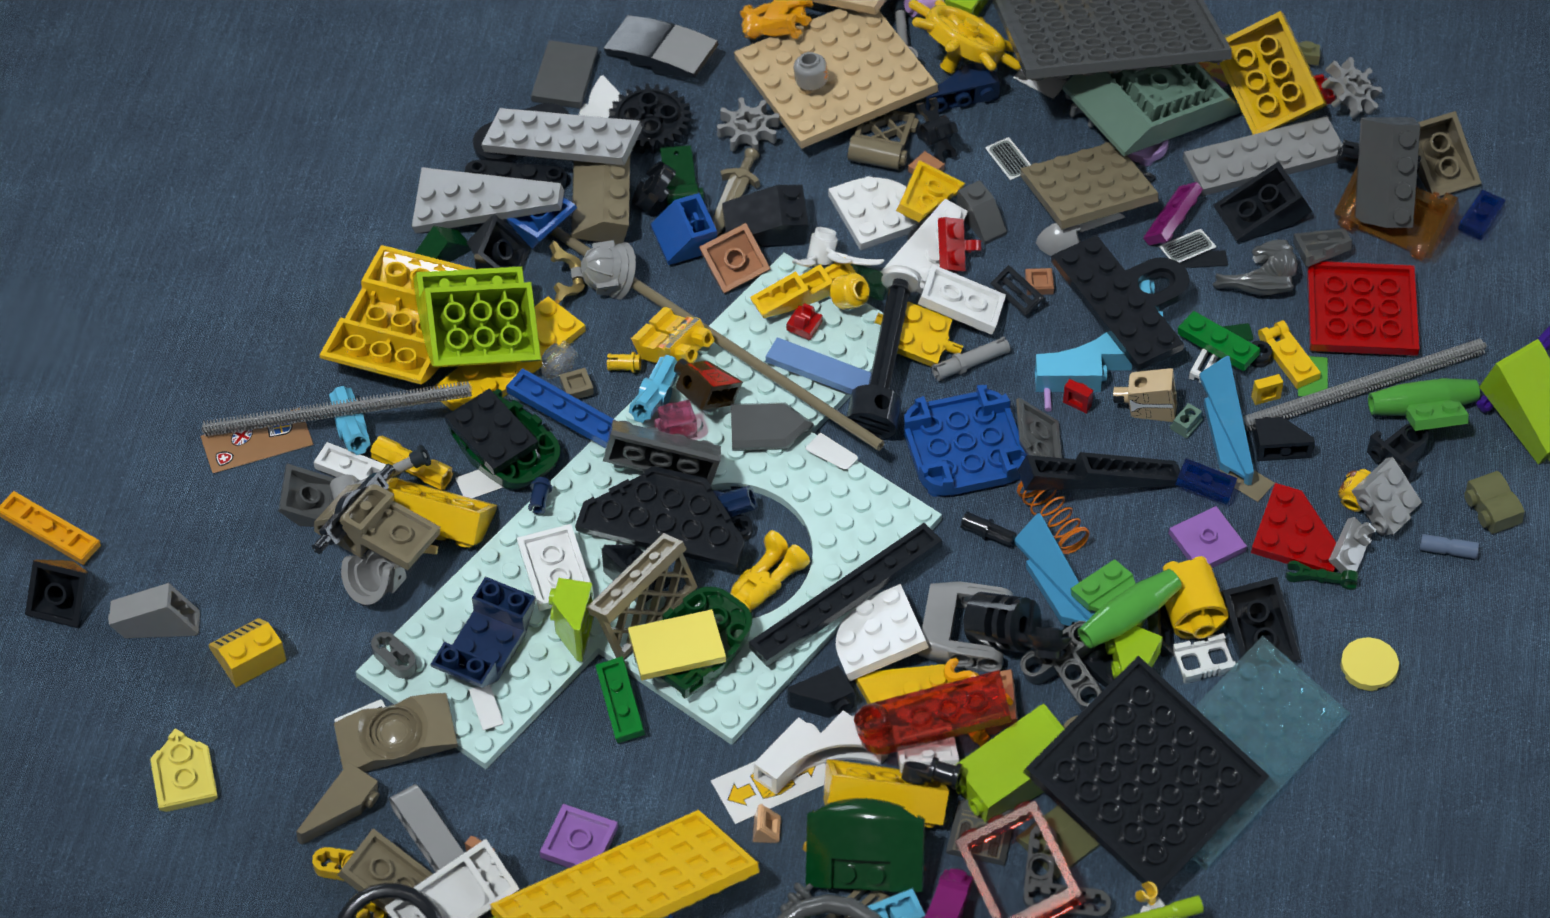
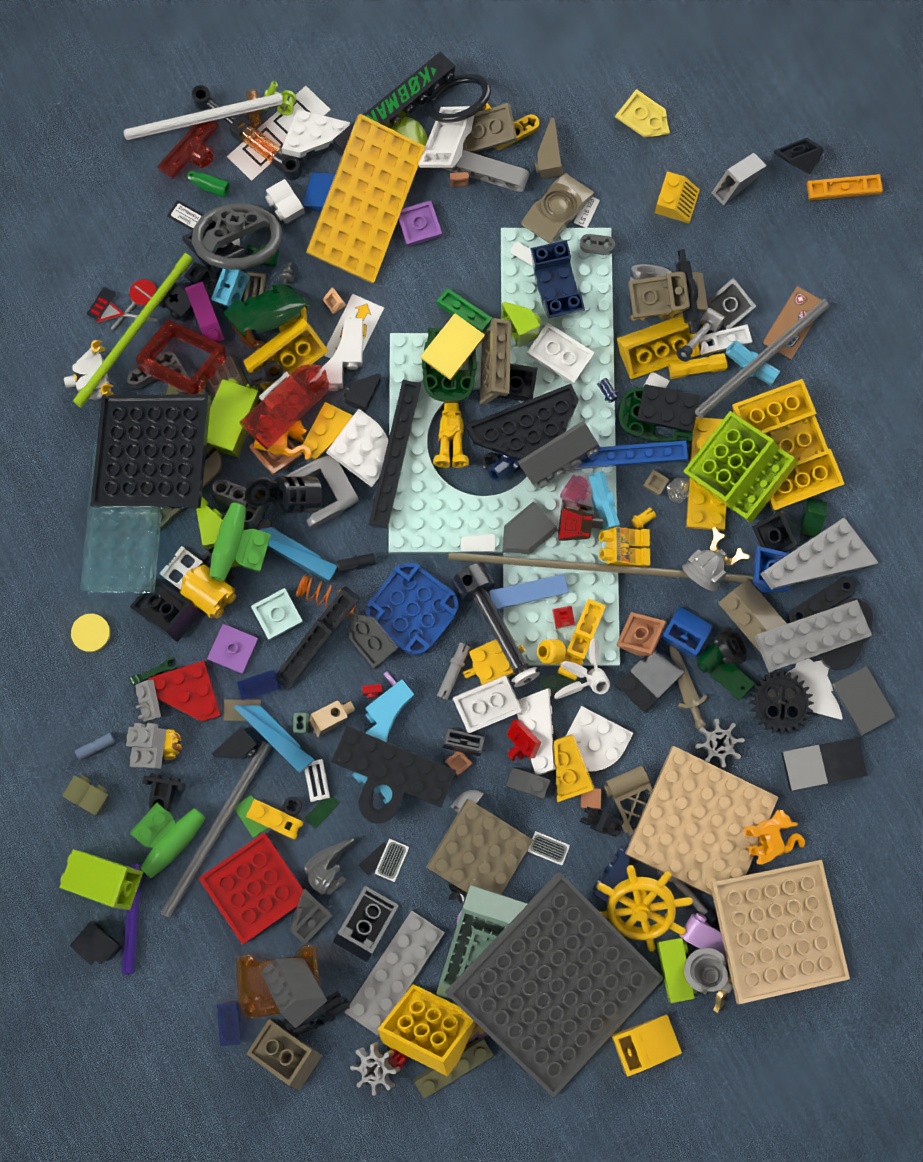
camera: 140 degrees right, 25 degrees up
(810, 71) = (711, 791): light grey head -> none
(1126, 537) = (276, 614): none -> light aqua plate
(1173, 214) = (415, 874): magenta plate -> none
(1218, 340) = (319, 792): green plate -> none
(1267, 389) = (268, 779): yellow tile -> none

